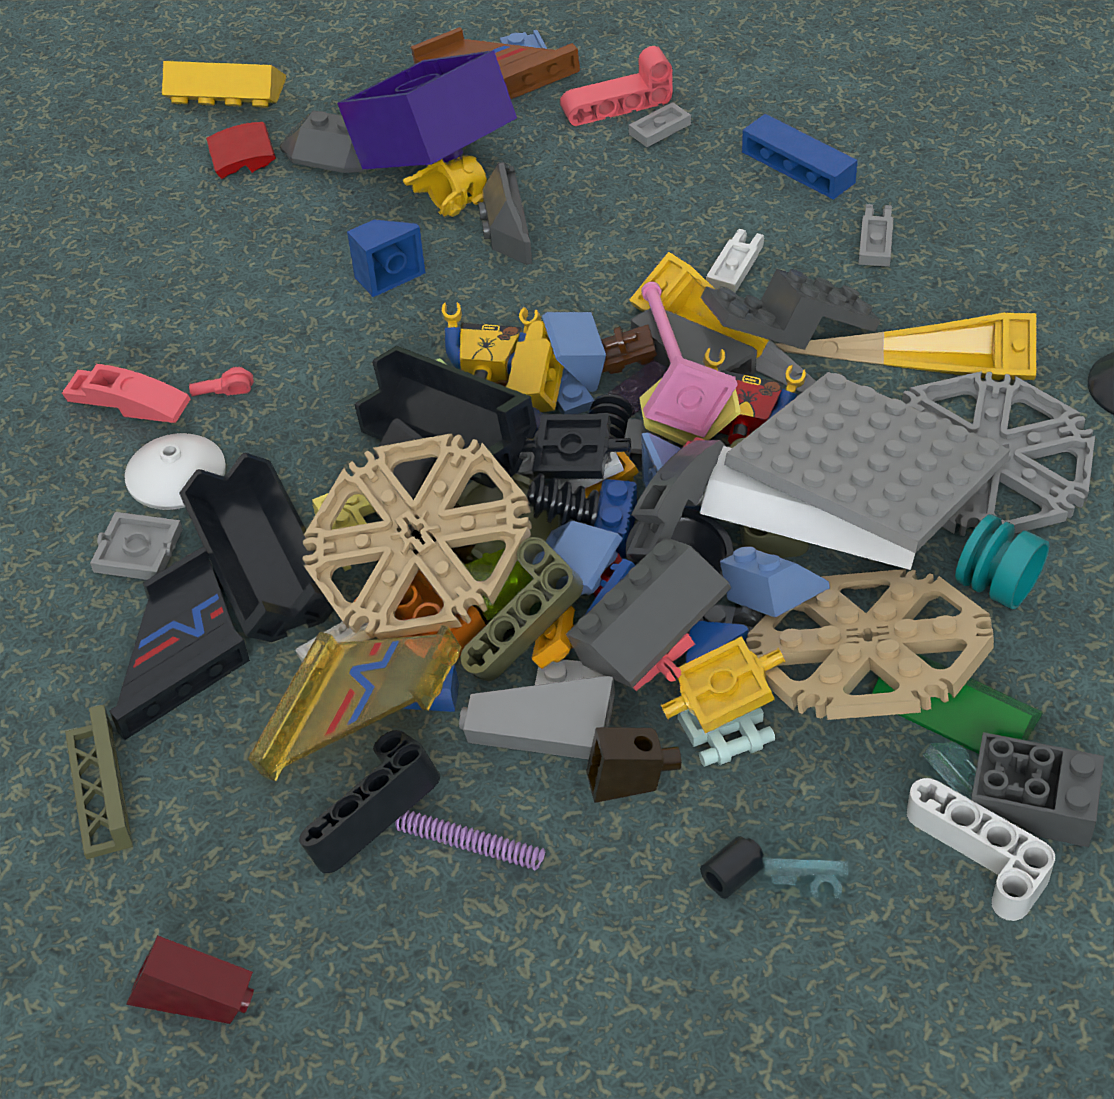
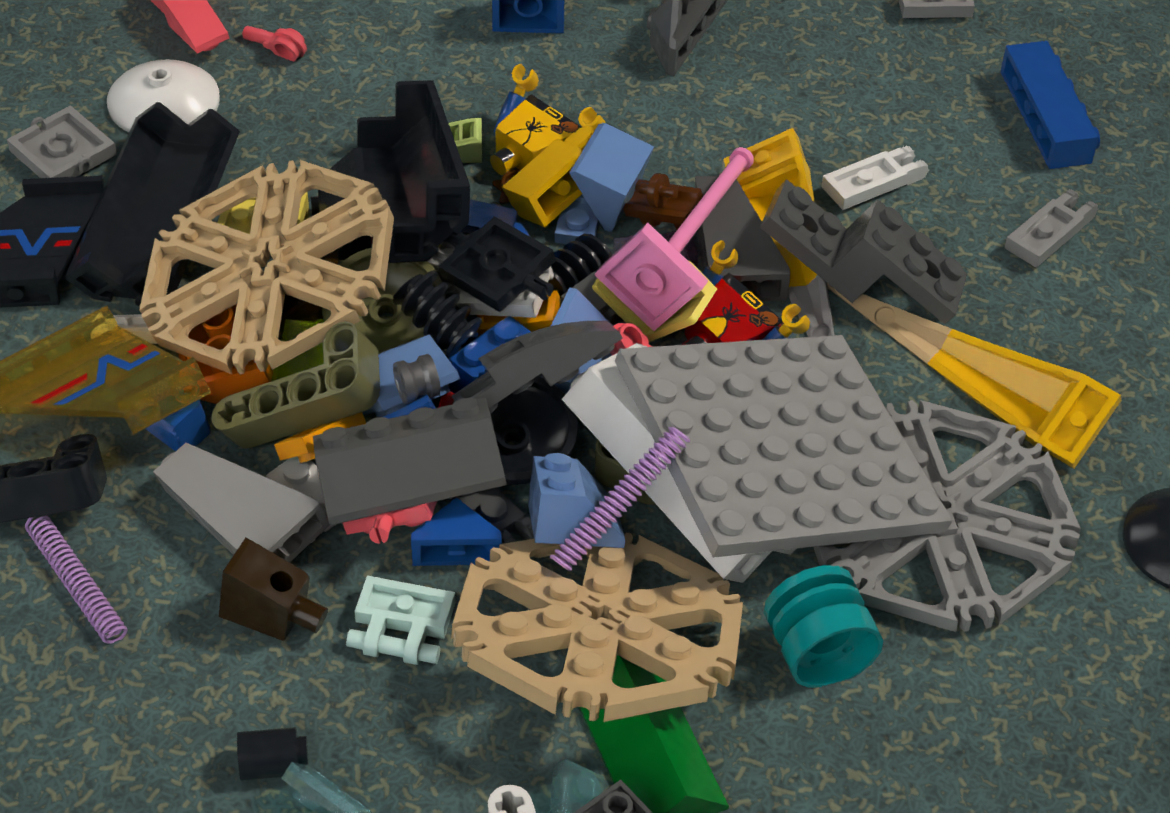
camera: 30 degrees right, 0 degrees up
(605, 552) = (416, 378): none -> flat silver wheel
(724, 684) = (418, 575): yellow plate -> none
(831, 499) = (619, 497): none -> lavender piece

